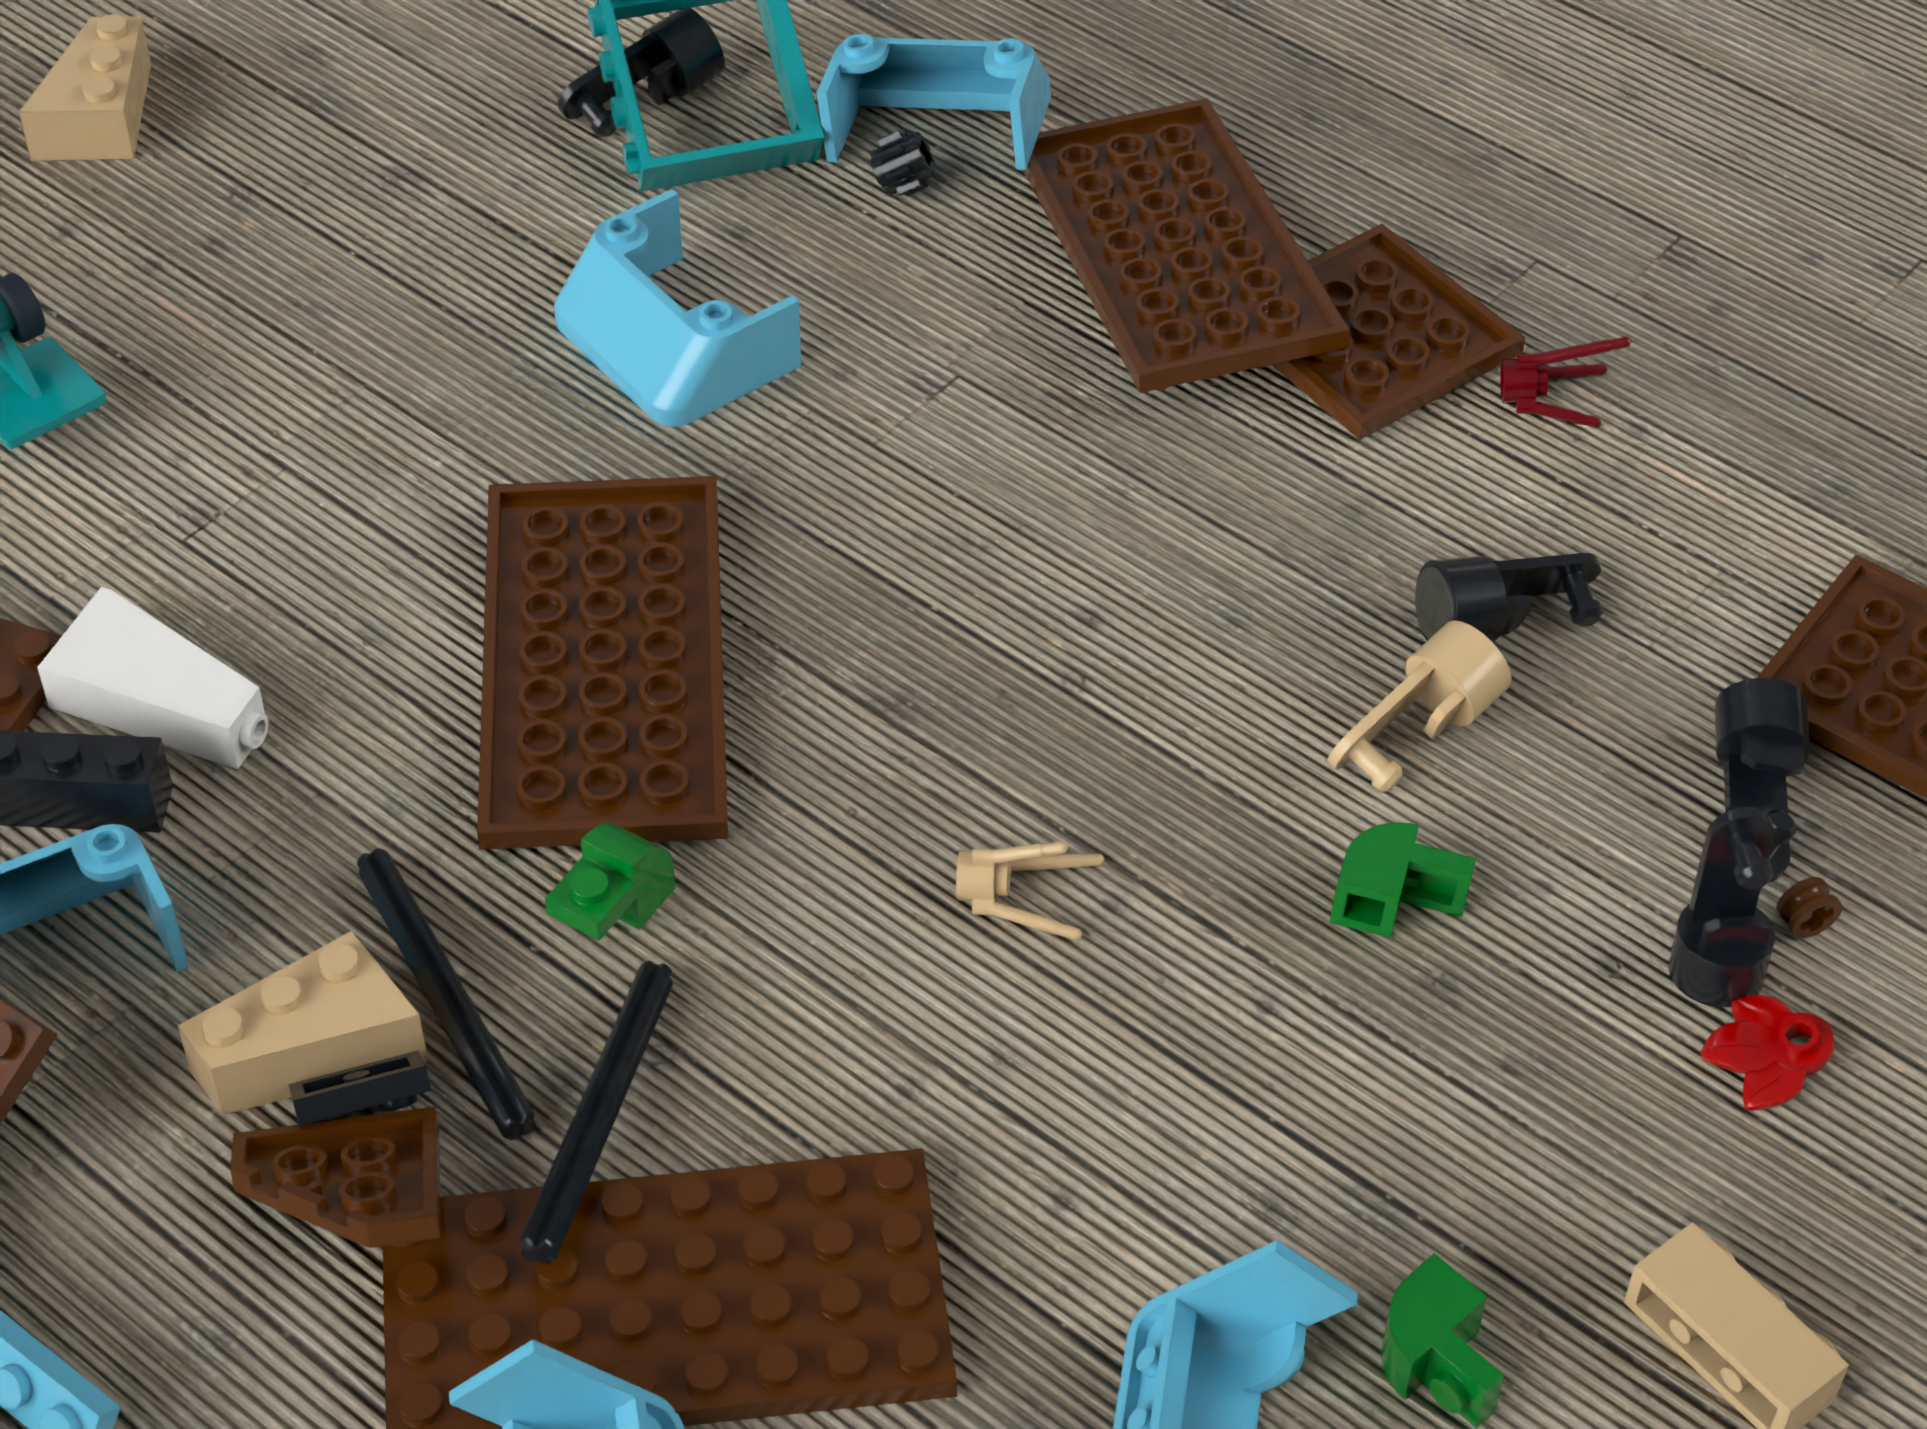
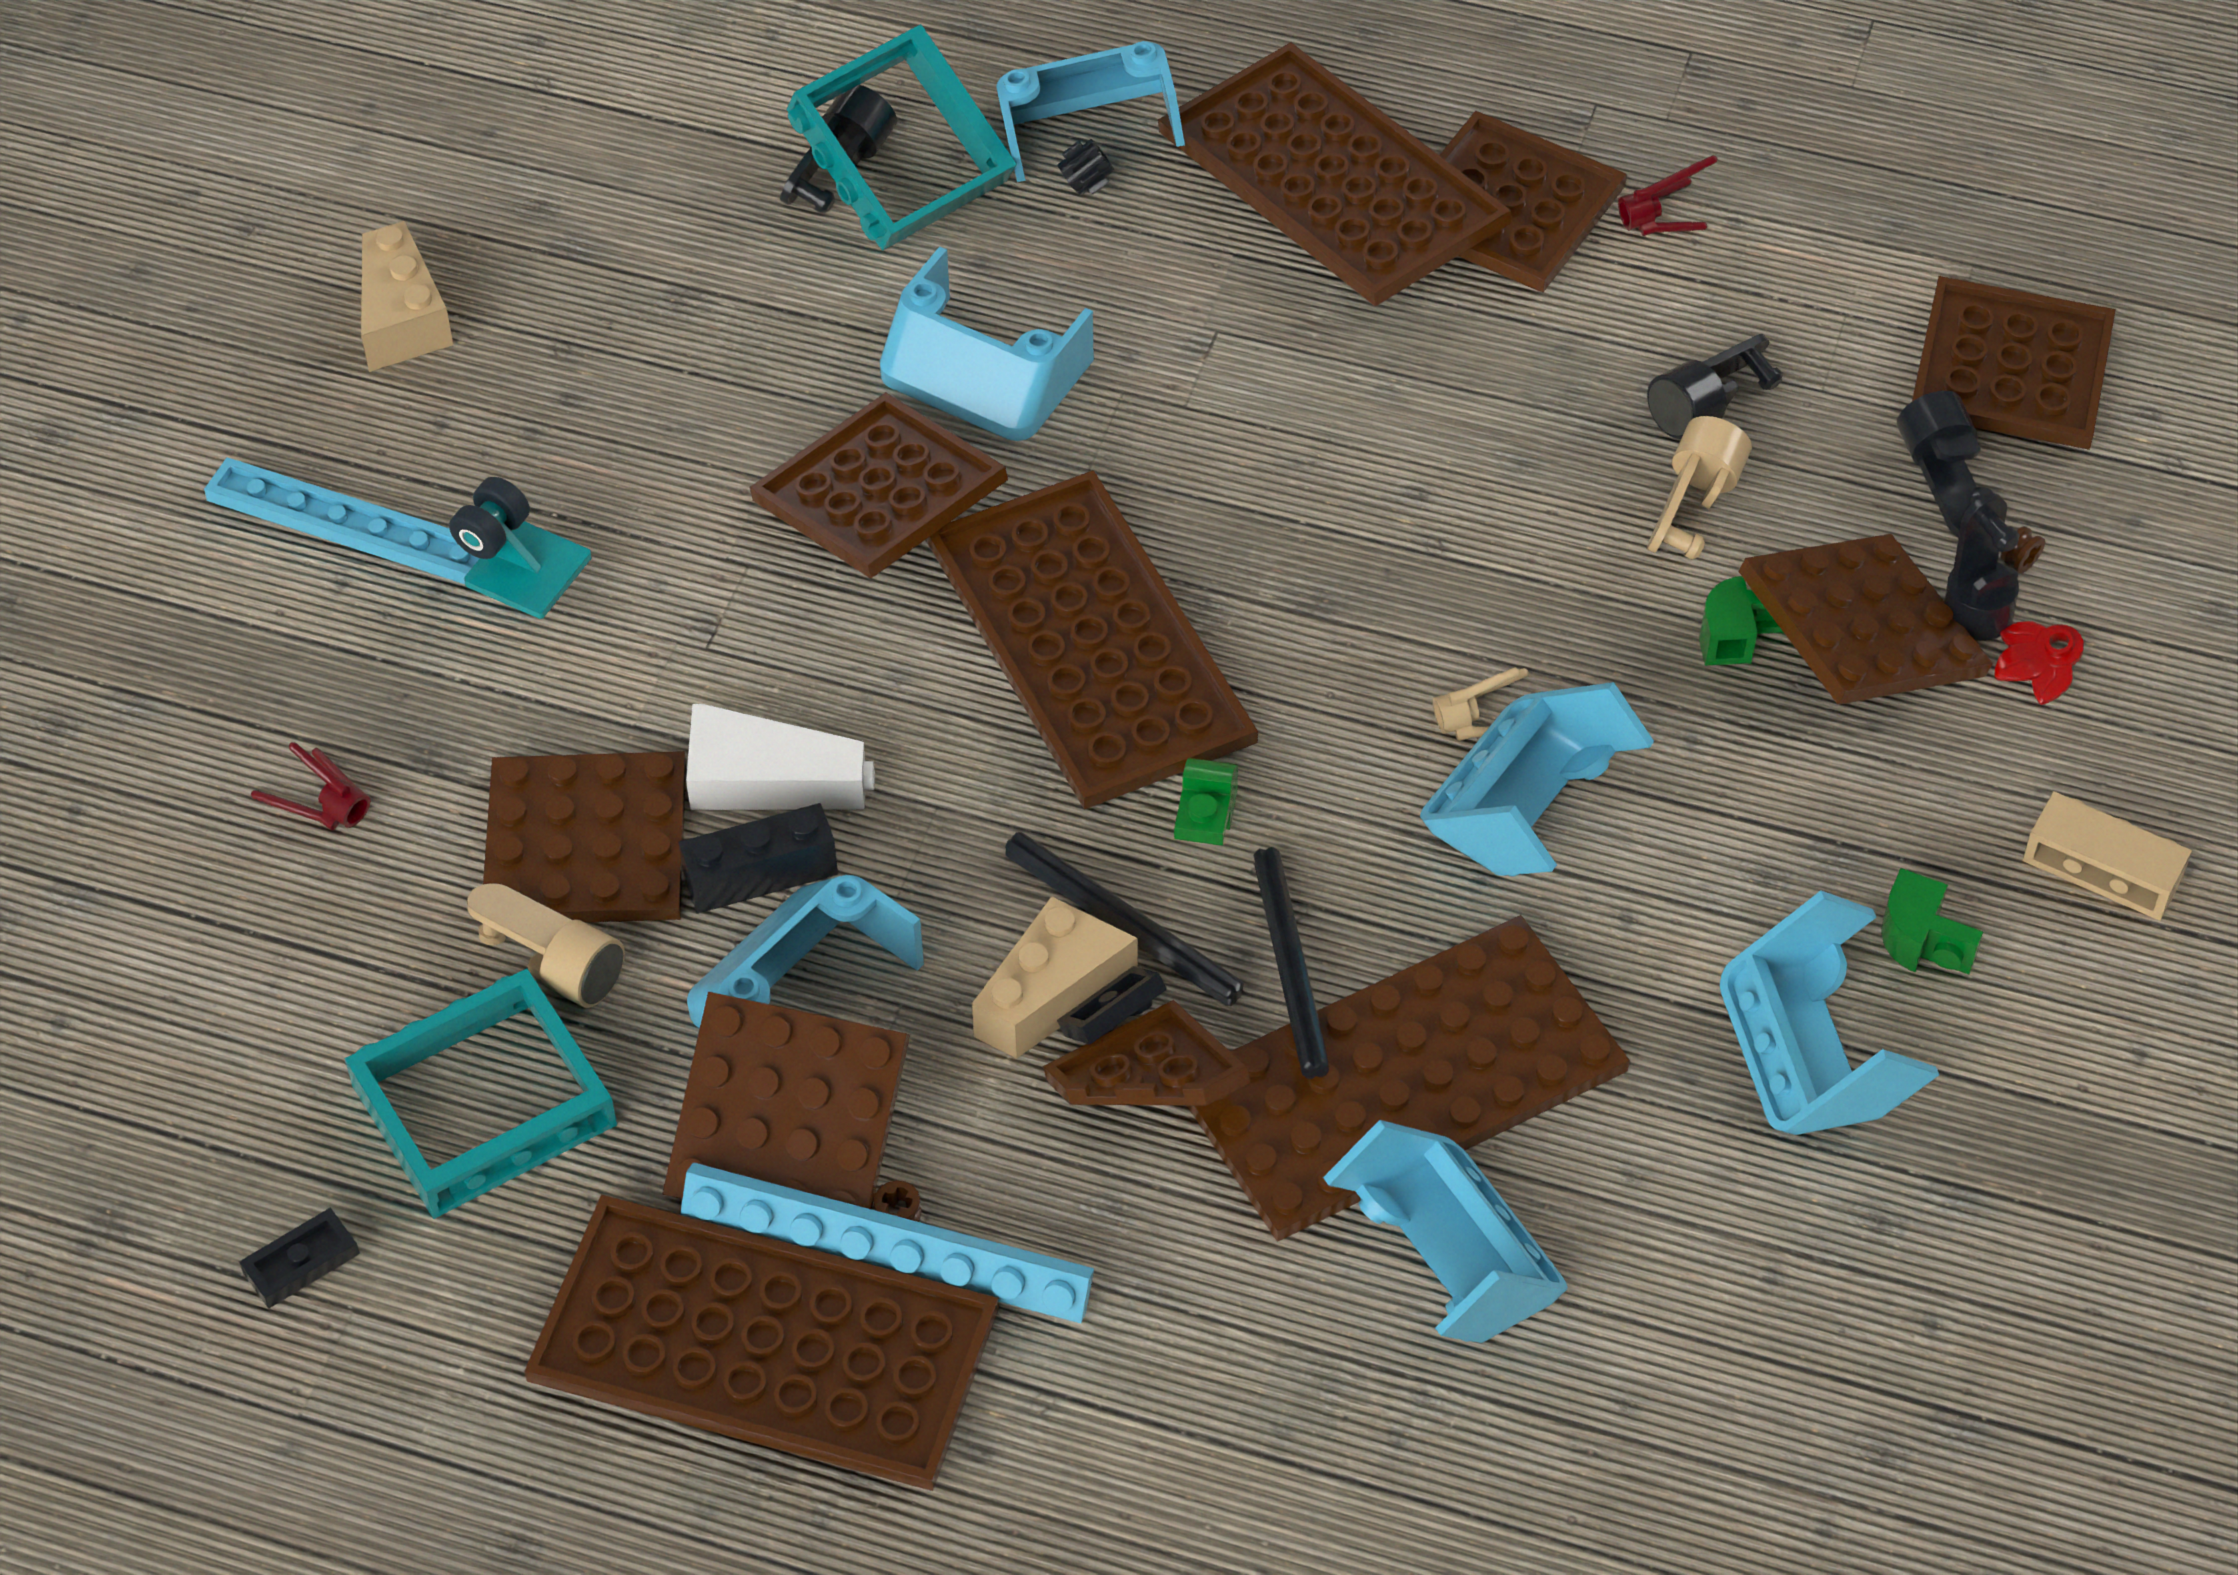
camera: 20 degrees left, 5 degrees up
(466, 421) = (878, 484): none -> reddish brown plate
(1018, 974) = (1523, 766): none -> medium azure windscreen
(1552, 927) = (1864, 618): none -> reddish brown plate

